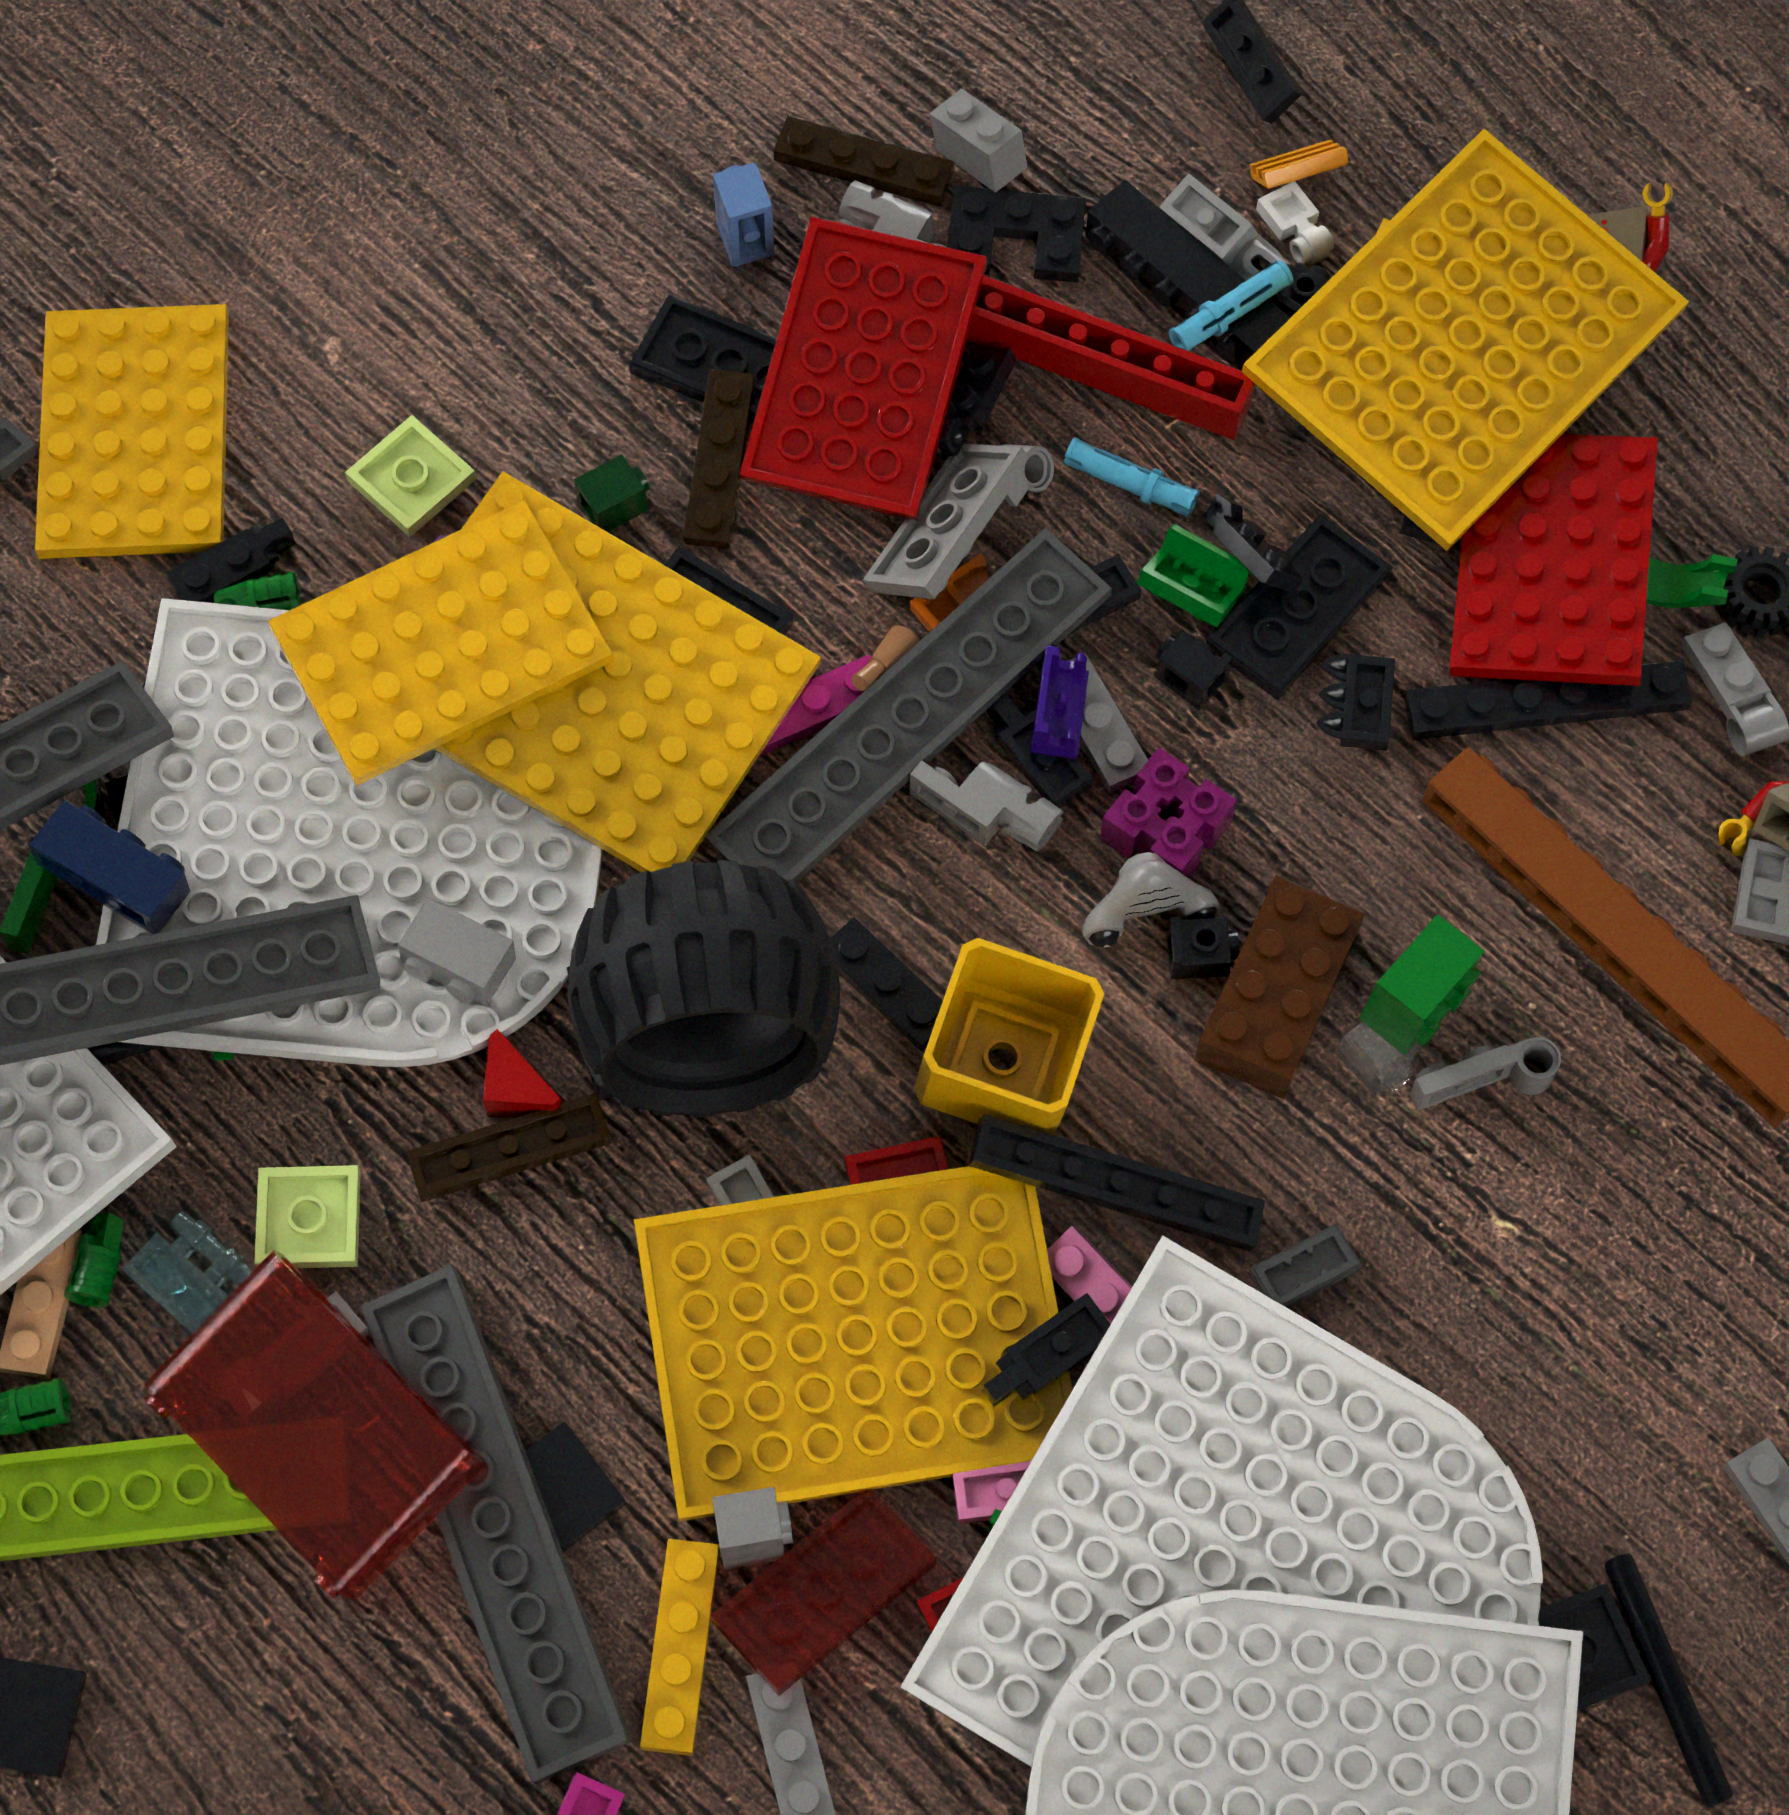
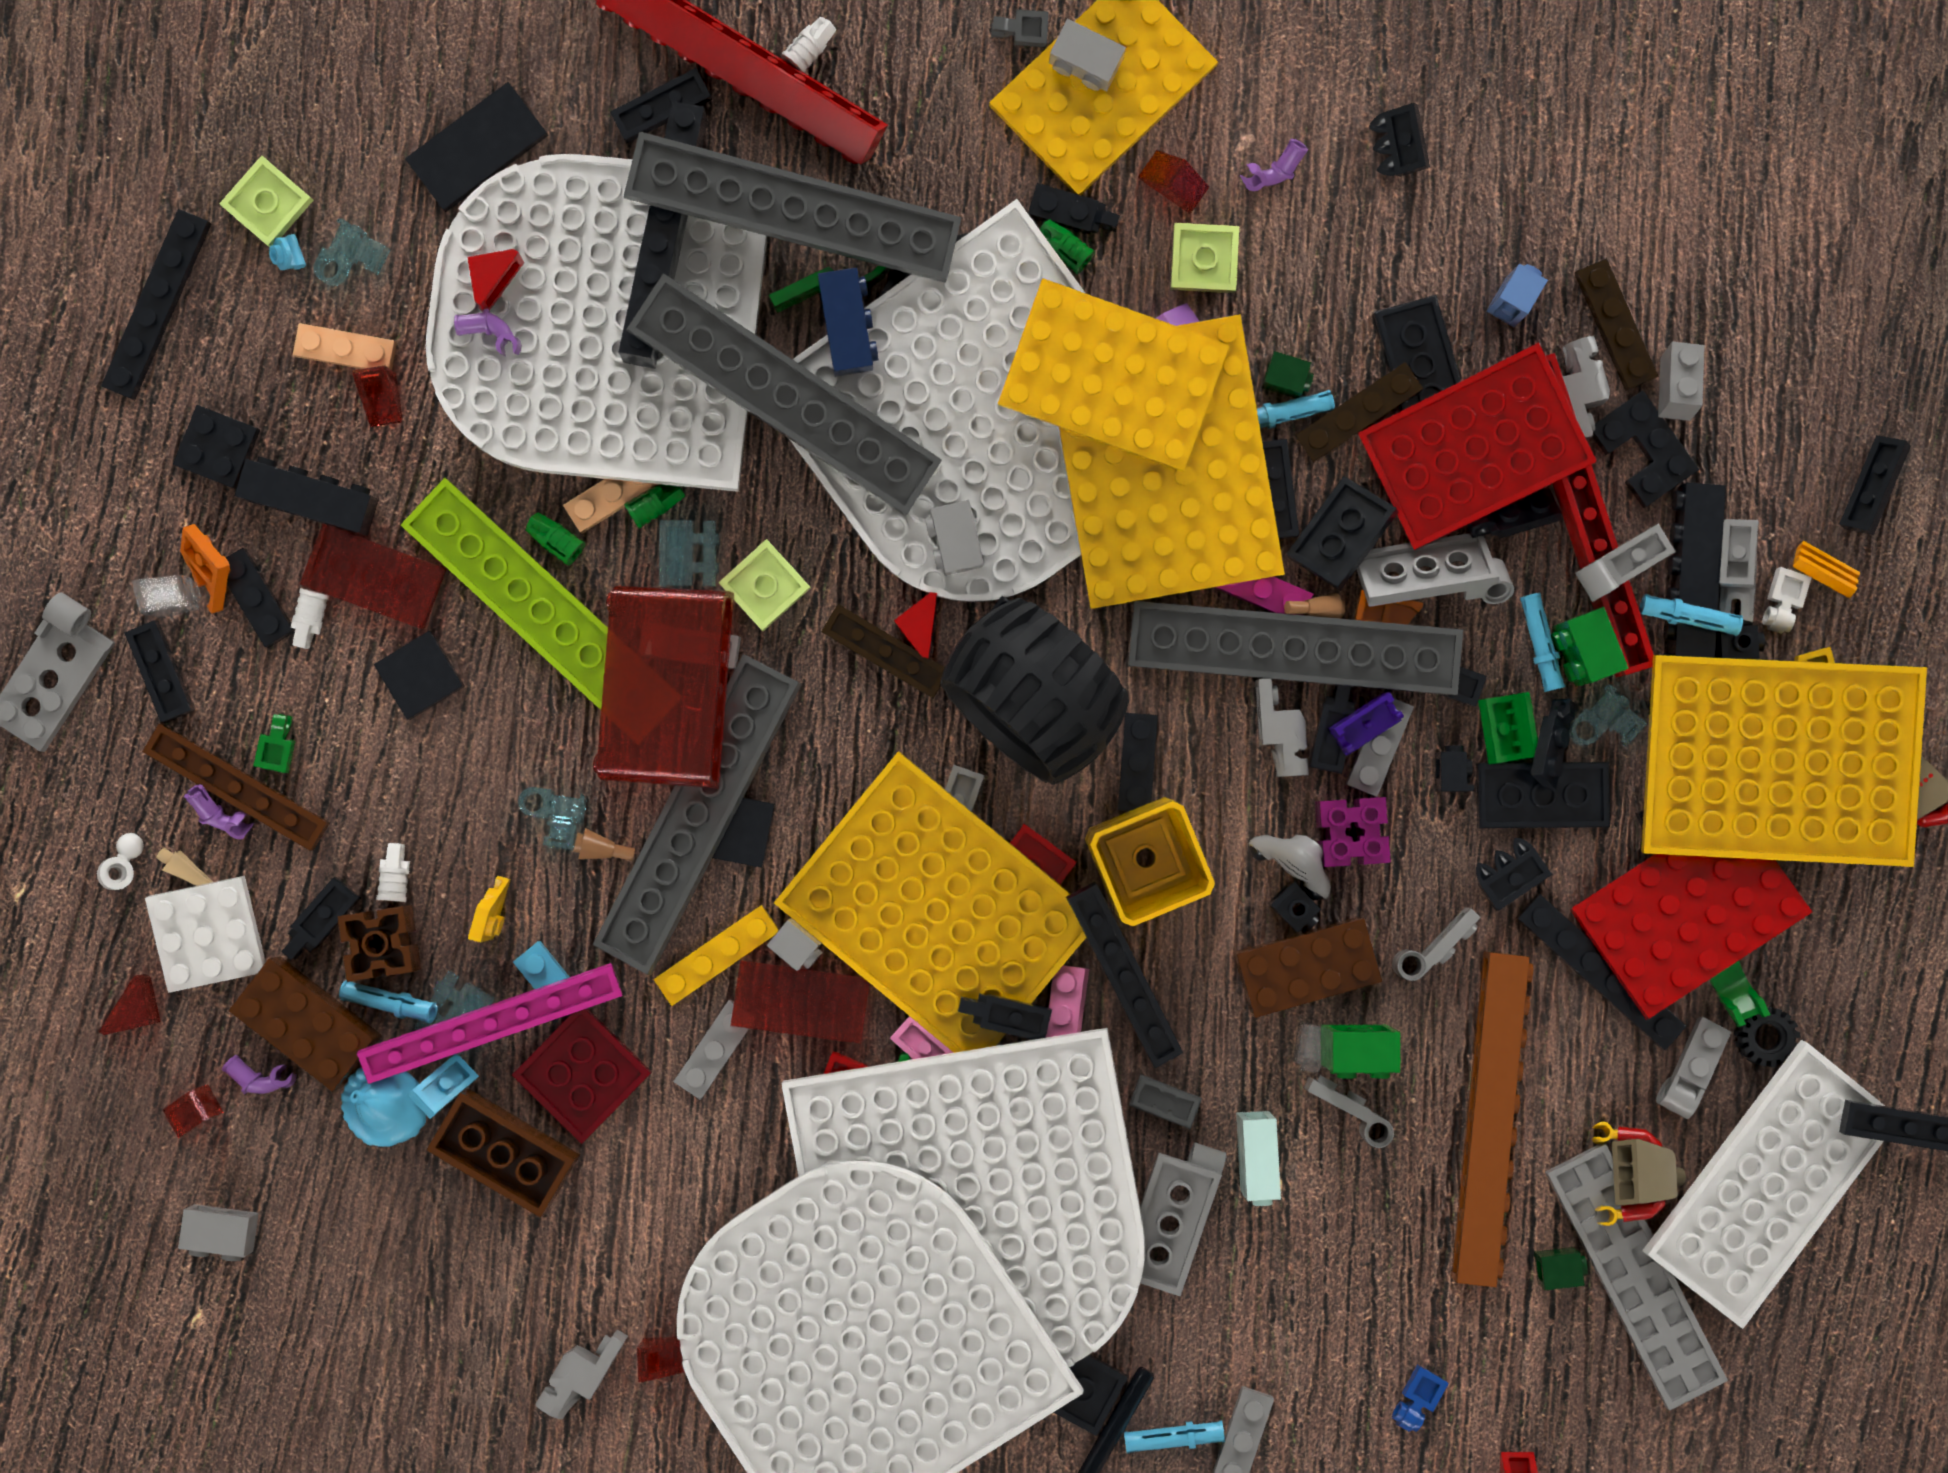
camera: 55 degrees right, 20 degrees up
(87, 409) = (1086, 56): none -> light grey brick
(301, 440) = (1174, 180): none -> clear red slope
(344, 1683) = (563, 814): none -> clear light blue piece
(395, 334) = (1279, 170): none -> medium lavender piece
(417, 1678) = (594, 846): none -> medium nougat cone
(480, 201) = (1403, 141): none -> black plate
(658, 511) = (1294, 409): none -> medium azure pin
(831, 571) = (1342, 533): none -> black plate
(1117, 316) = (1625, 562): none -> light grey plate
(1177, 428) = (1589, 647): none -> green brick
(1274, 471) = (1612, 715): none -> clear light blue piece
(1380, 838) = (1441, 947): none -> light grey plate
(1427, 1292) = (1201, 1177): none -> light grey hinge
(1457, 1210) = (1258, 1157): none -> light aqua brick
(1734, 1575) = (1177, 1436): none -> medium azure pin

